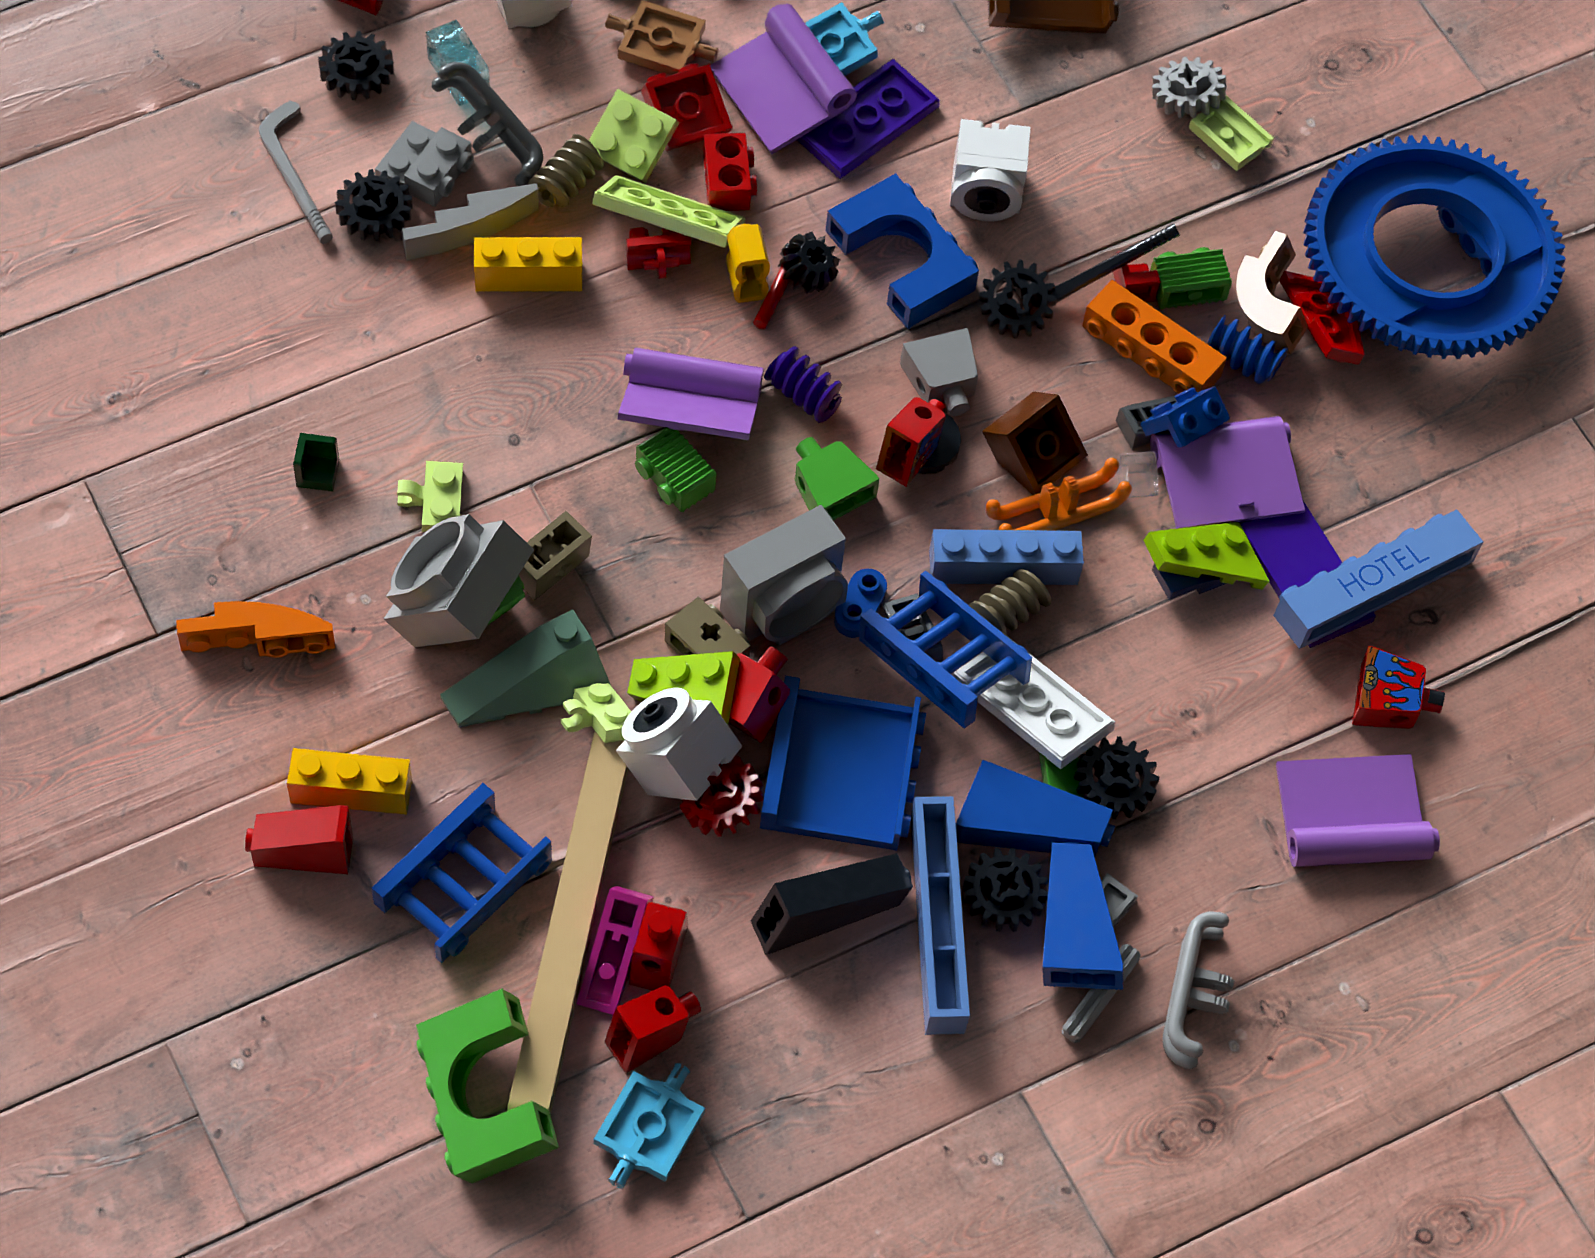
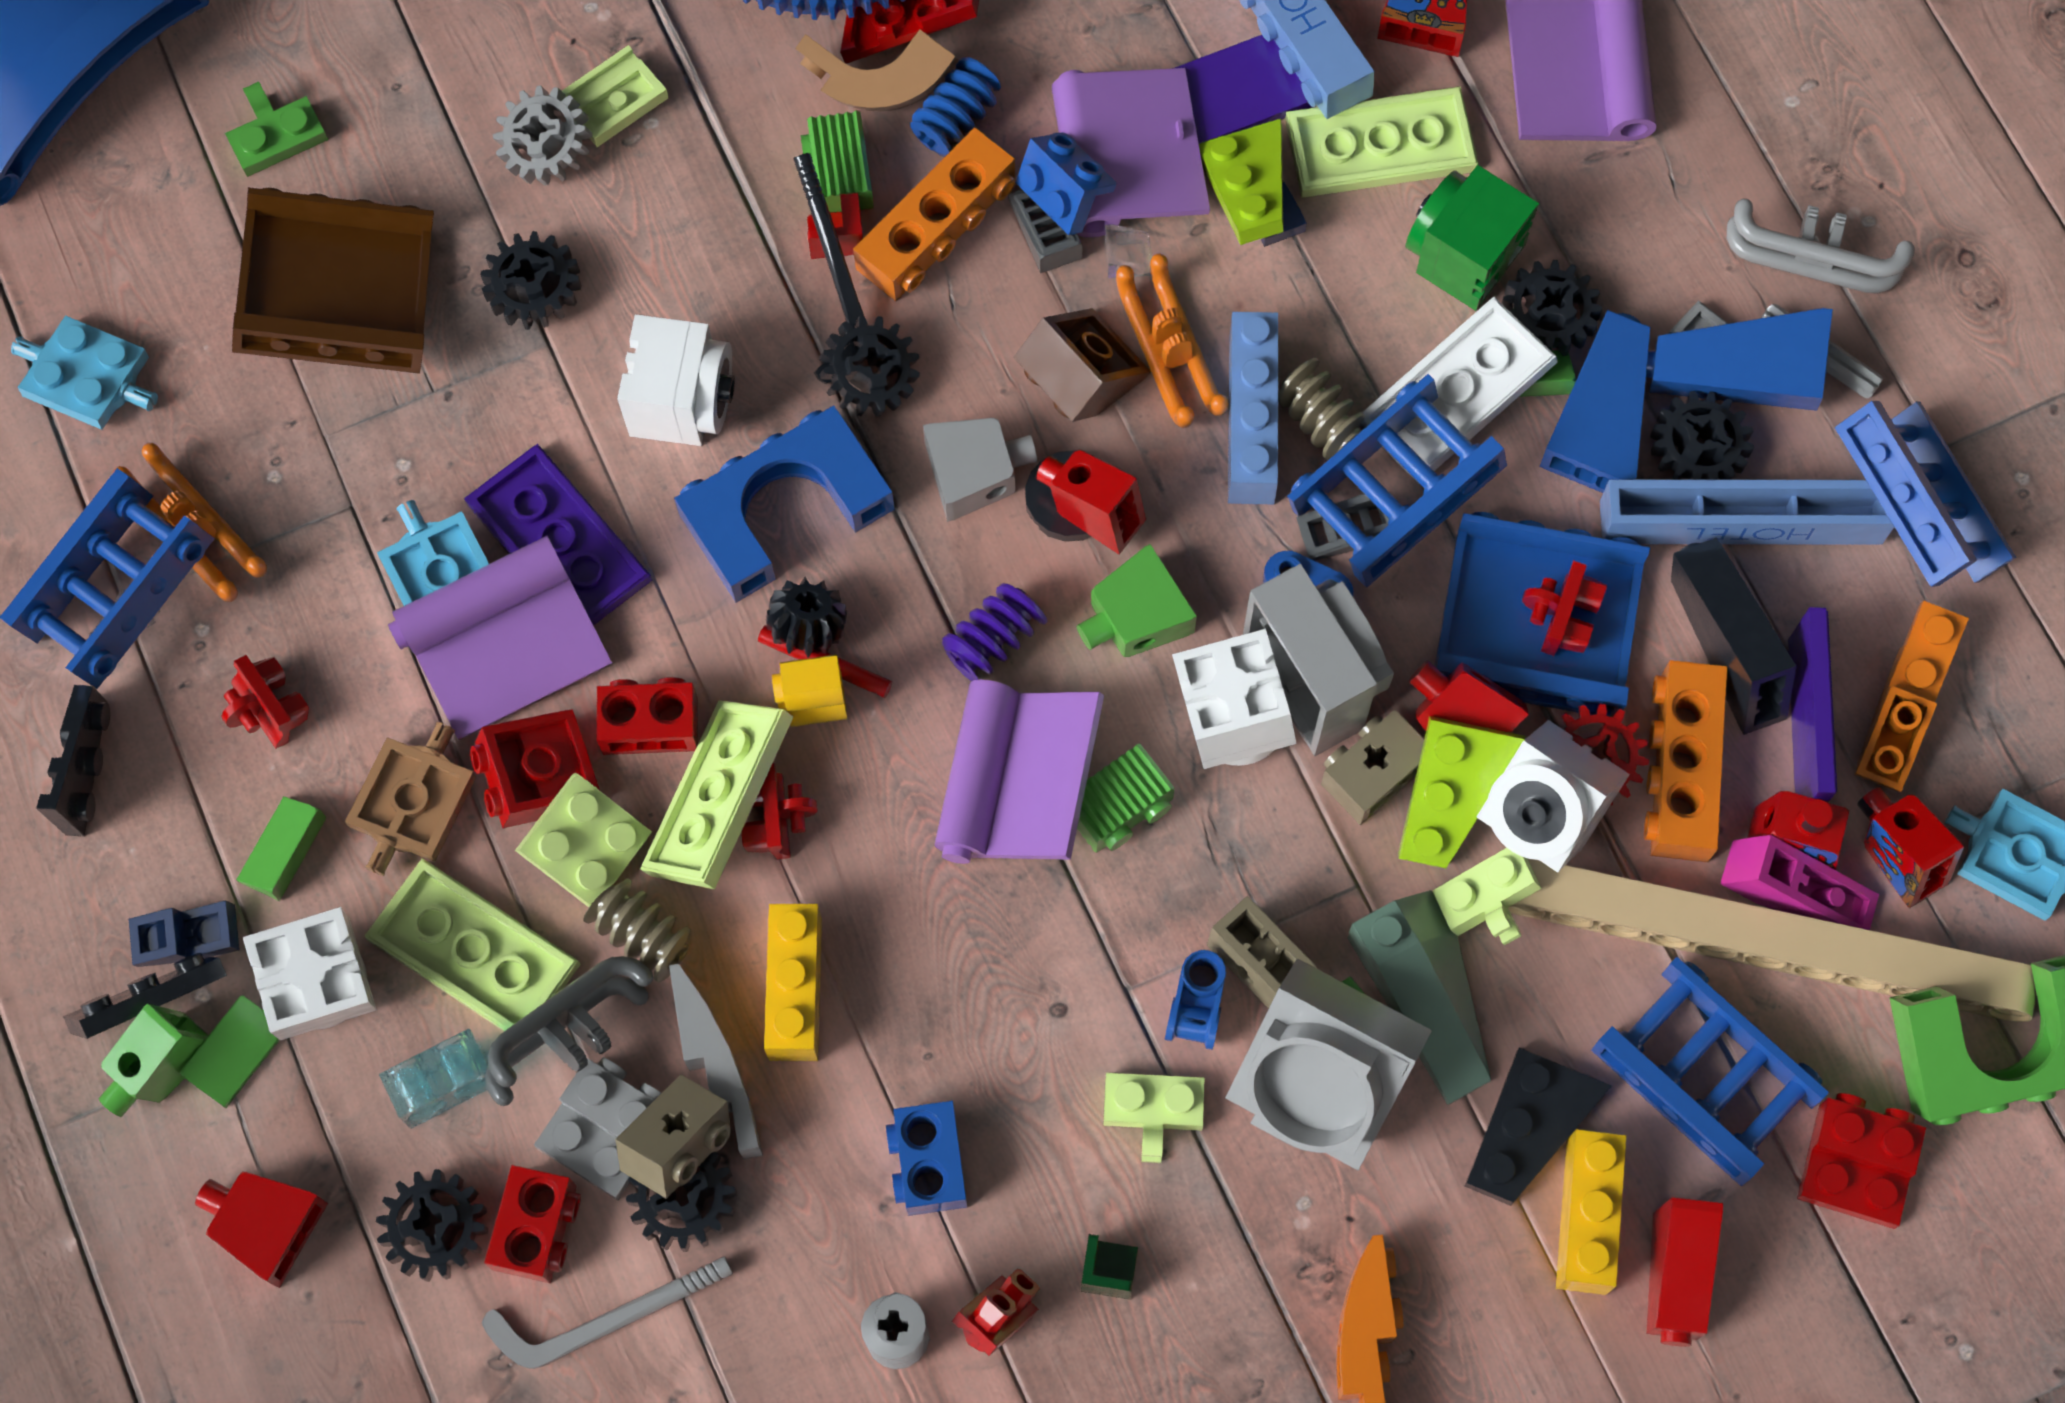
camera: 80 degrees left, 10 degrees up
(270, 325) = (880, 1319): none -> light grey piece
(282, 389) = (998, 1312): none -> red hips
(355, 120) = (518, 1222): none -> red brick
(390, 985) = (1861, 1160): none -> red plate
(399, 359) = (938, 1157): none -> blue brick
(409, 184) = (673, 1136): none -> dark tan brick
(437, 754) = (1530, 1123): none -> black wing
(519, 514) = (1196, 1008): none -> blue piece
(558, 79) = (470, 947): none -> yellowish green tile
(704, 879) = (1704, 693): none -> orange brick
(742, 514) = (1235, 700): none -> white piece
(759, 950) = (1813, 707): none -> dark purple tile
(781, 1042) = (1910, 696): none -> orange slope
(847, 772) = (1576, 591): none -> red hips
(935, 1024) = (1925, 493): none -> blue fence
(1069, 88) = (553, 284): none -> black gear
(1171, 708) = (1470, 233): none -> green piece
(1260, 663) = (1381, 142): none -> yellowish green tile

